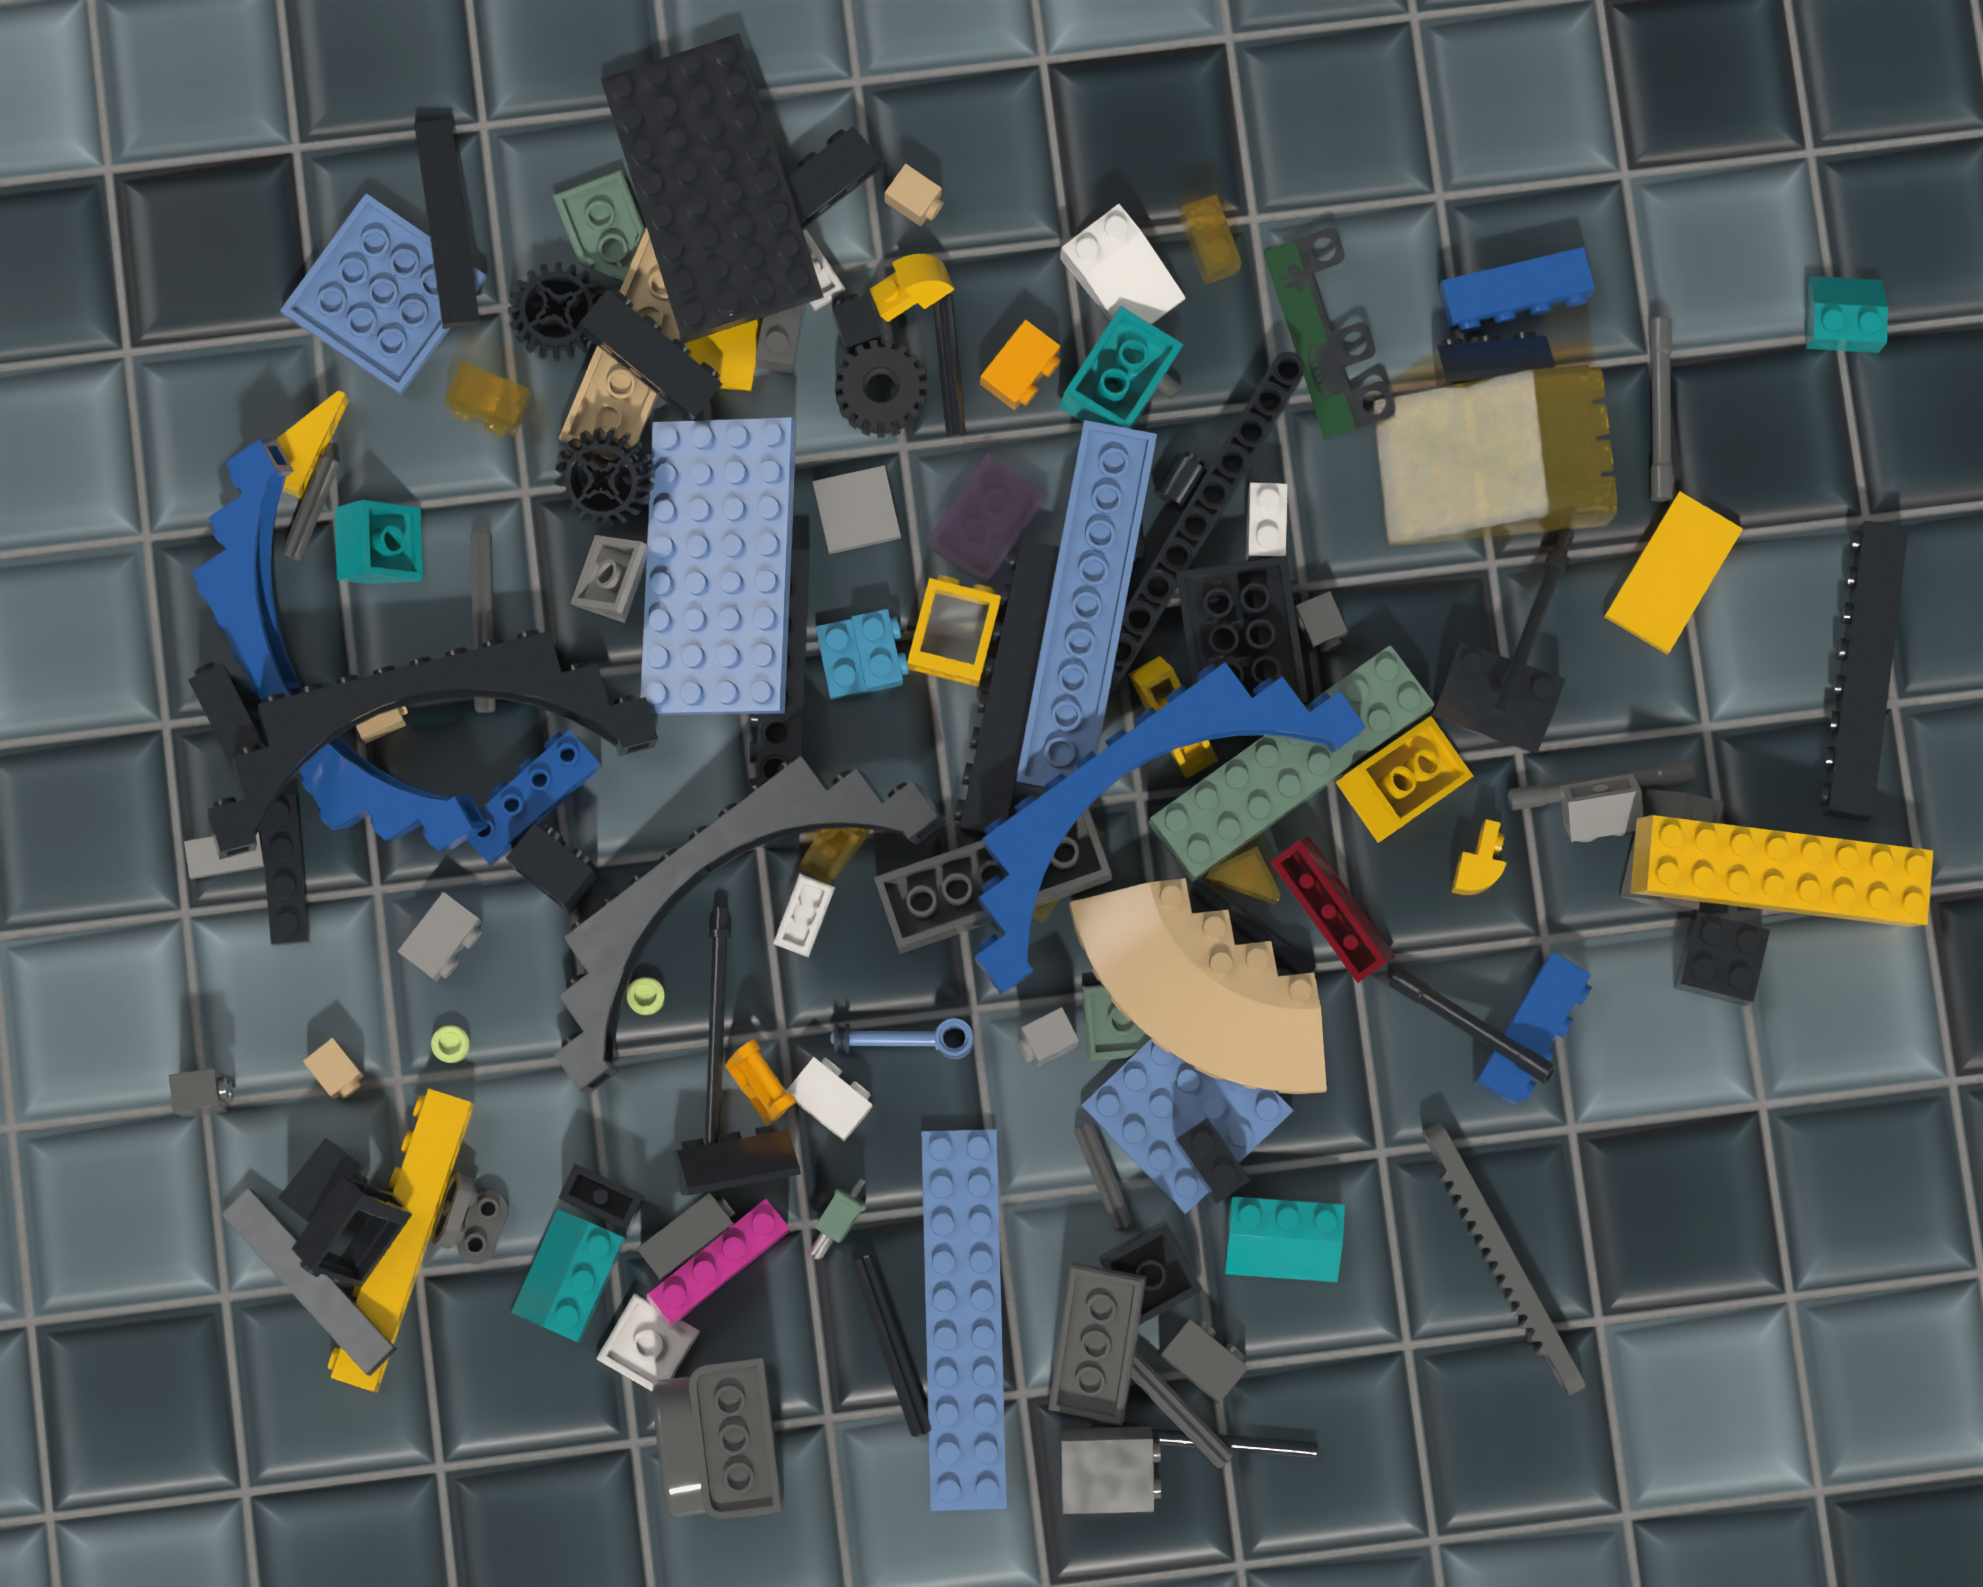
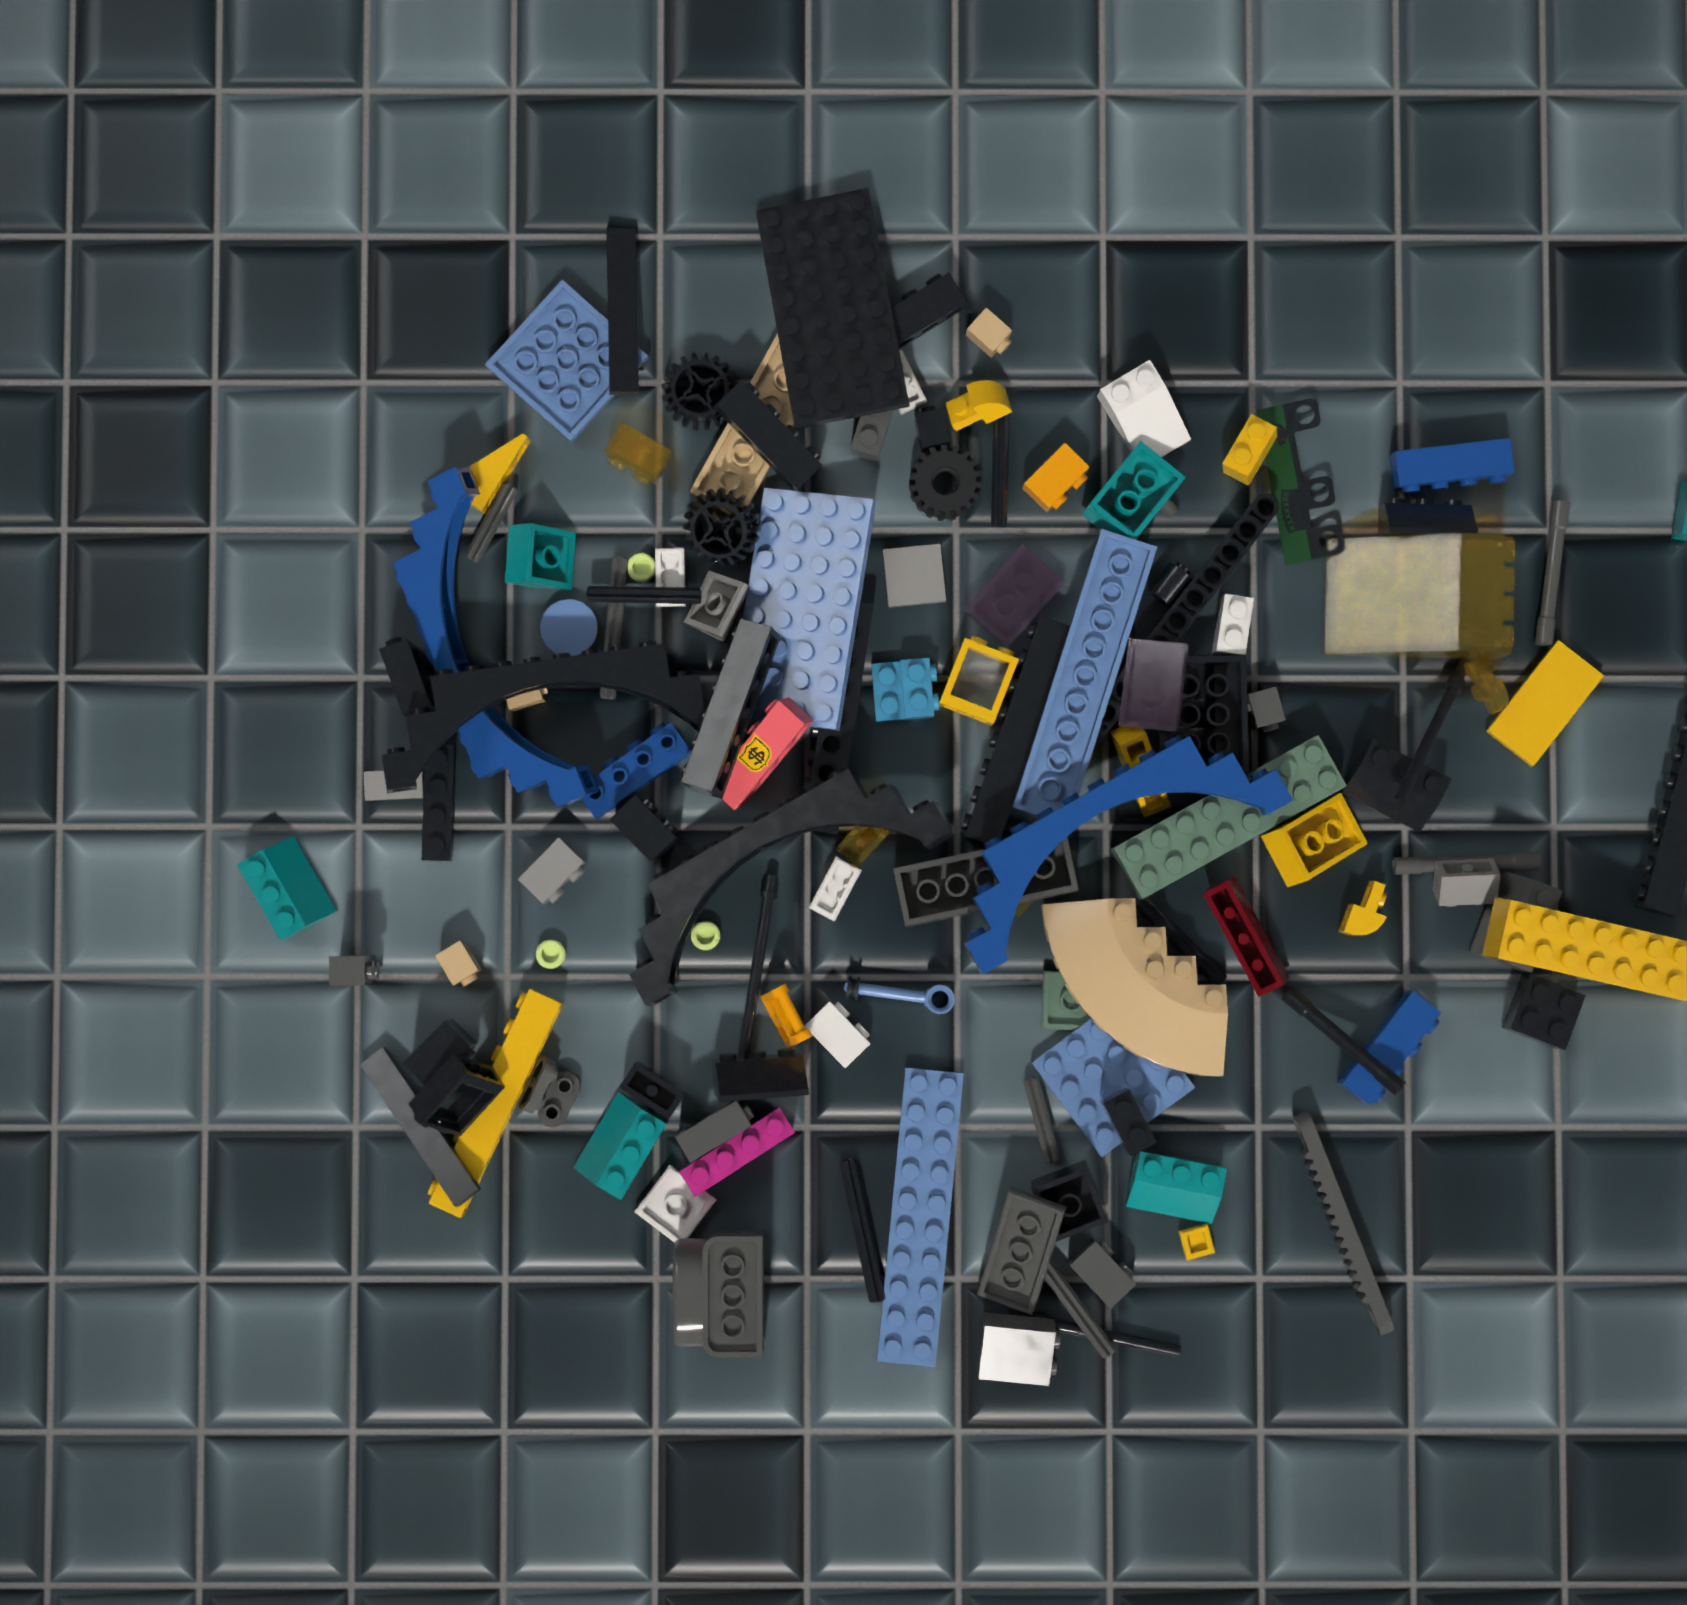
camera: 10 degrees right, 5 degrees up
(103, 1000) = (287, 888): none -> teal slope
(425, 626) = (569, 627): none -> medium blue tile
(508, 541) = (641, 567): none -> yellowish green tile
(516, 573) = (631, 594): none -> black axle
(546, 549) = (670, 570): none -> white plate
(602, 224) = (743, 326): sand green tile -> none
(643, 701) = (730, 708): none -> brick
(688, 753) = (765, 749): none -> coral brick
(730, 354) = (831, 442): yellow tile -> none
(838, 1219) = (833, 1129): sand green piece -> none
(1047, 1038) = (1012, 1009): light grey brick -> none
(1173, 606) = (1153, 685): none -> clear purple plate
(1210, 239) = (1217, 396): clear yellow brick -> none
(1246, 875) = (1183, 900): clear yellow slope -> none
(1260, 301) = (1249, 449): none -> yellow brick
(1320, 1307) = (1196, 1241): none -> yellow tile
(1597, 561) = (1486, 686): none -> clear yellow plate

